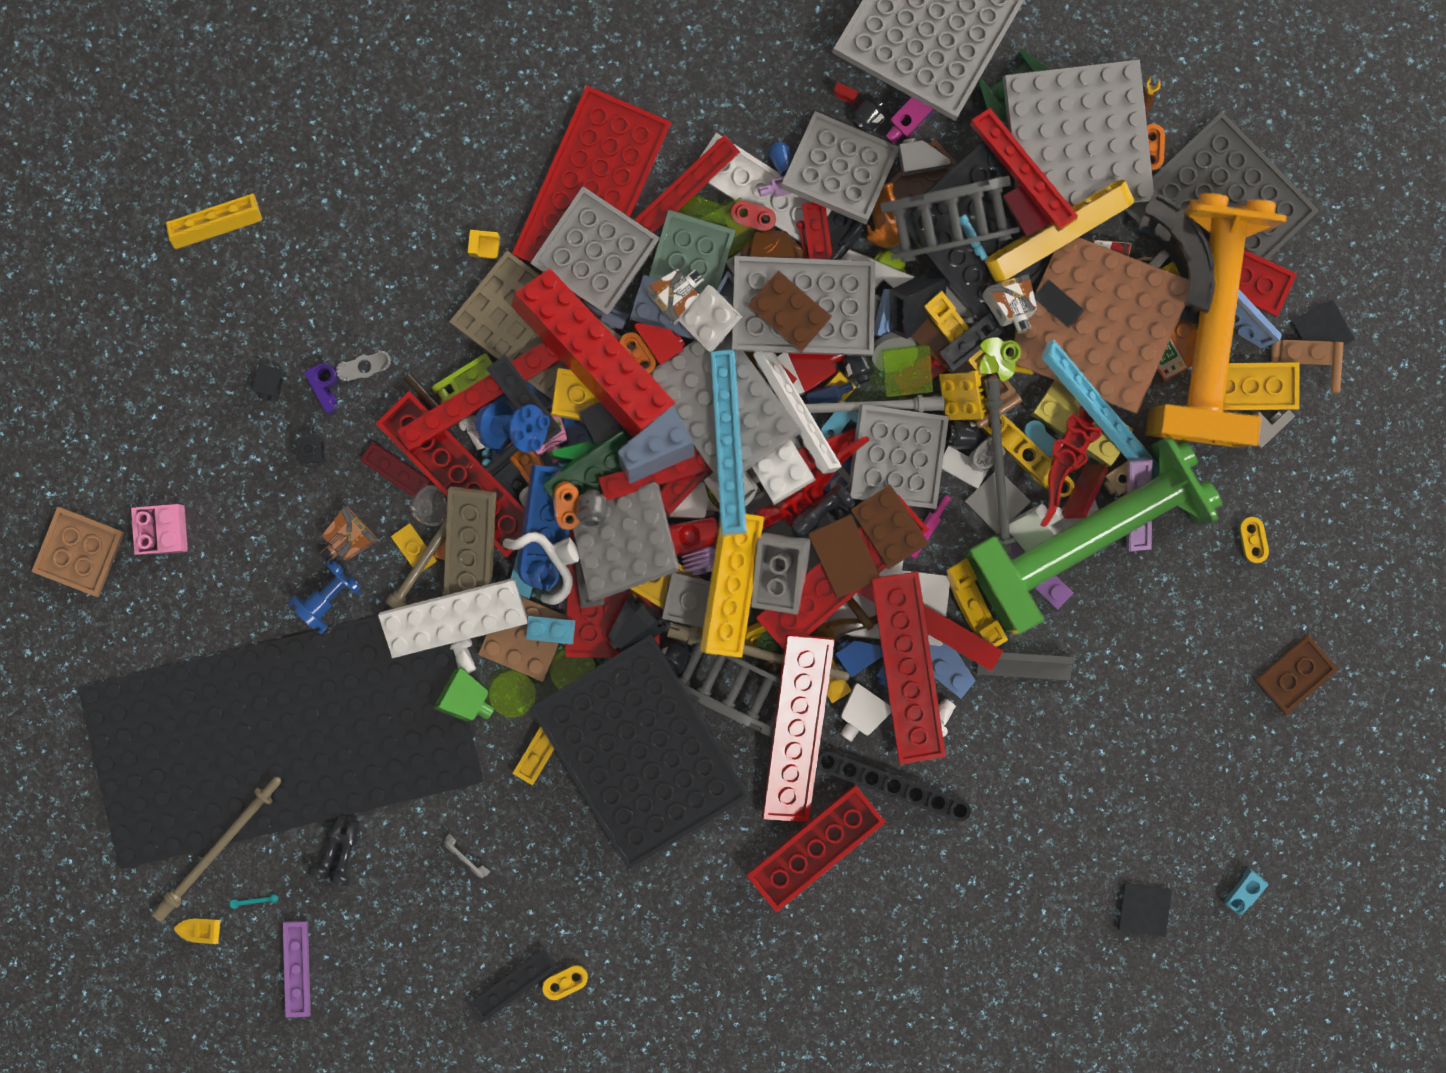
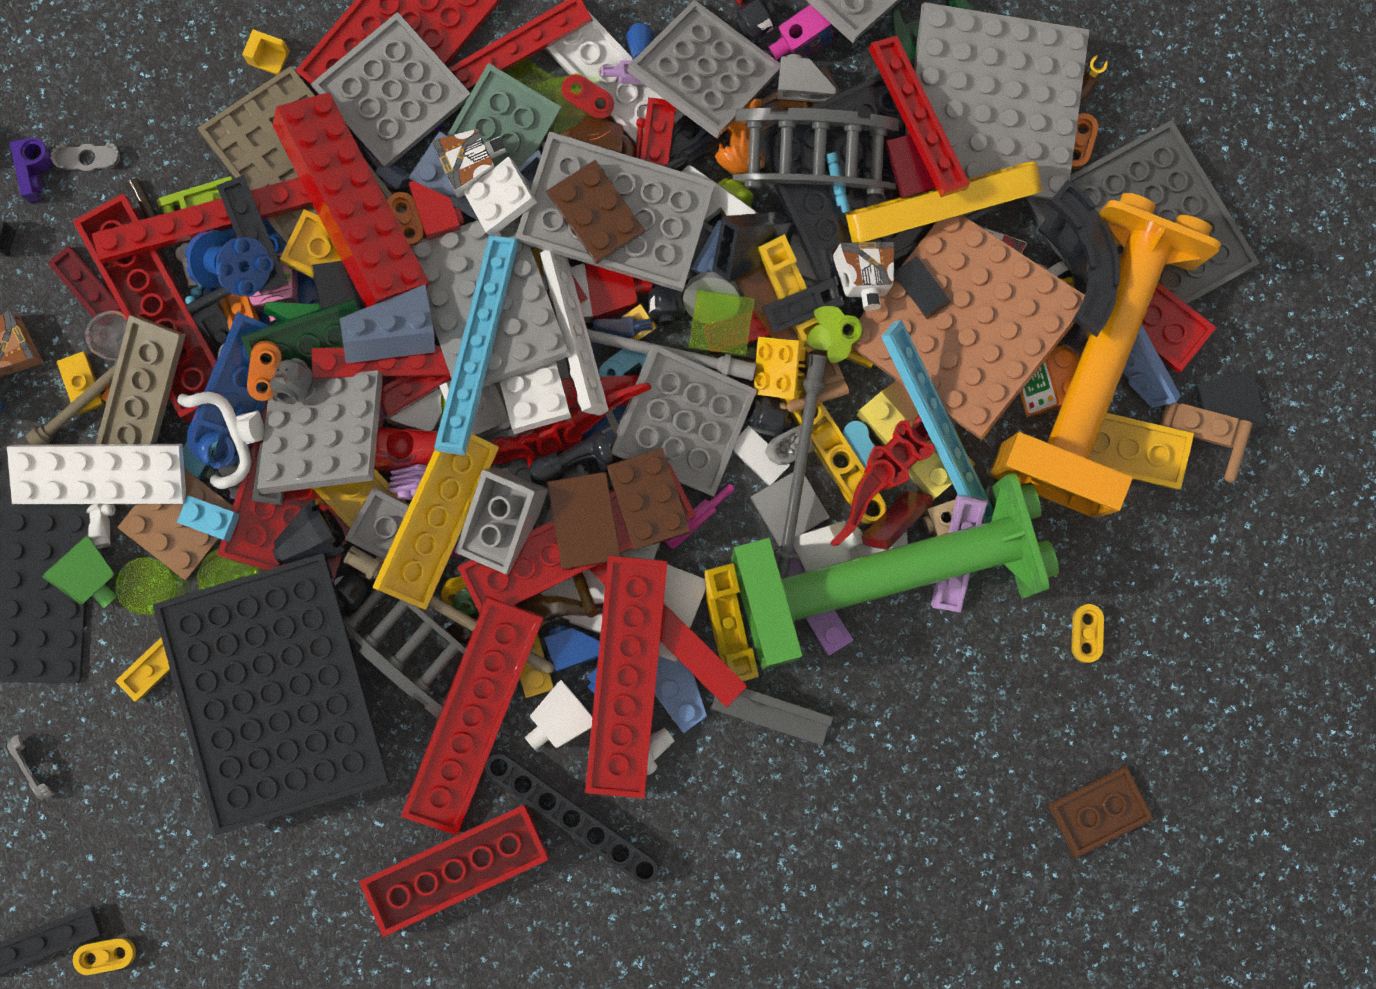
camera: 10 degrees right, 5 degrees down
(1268, 430) = (1135, 505): light grey slope -> none

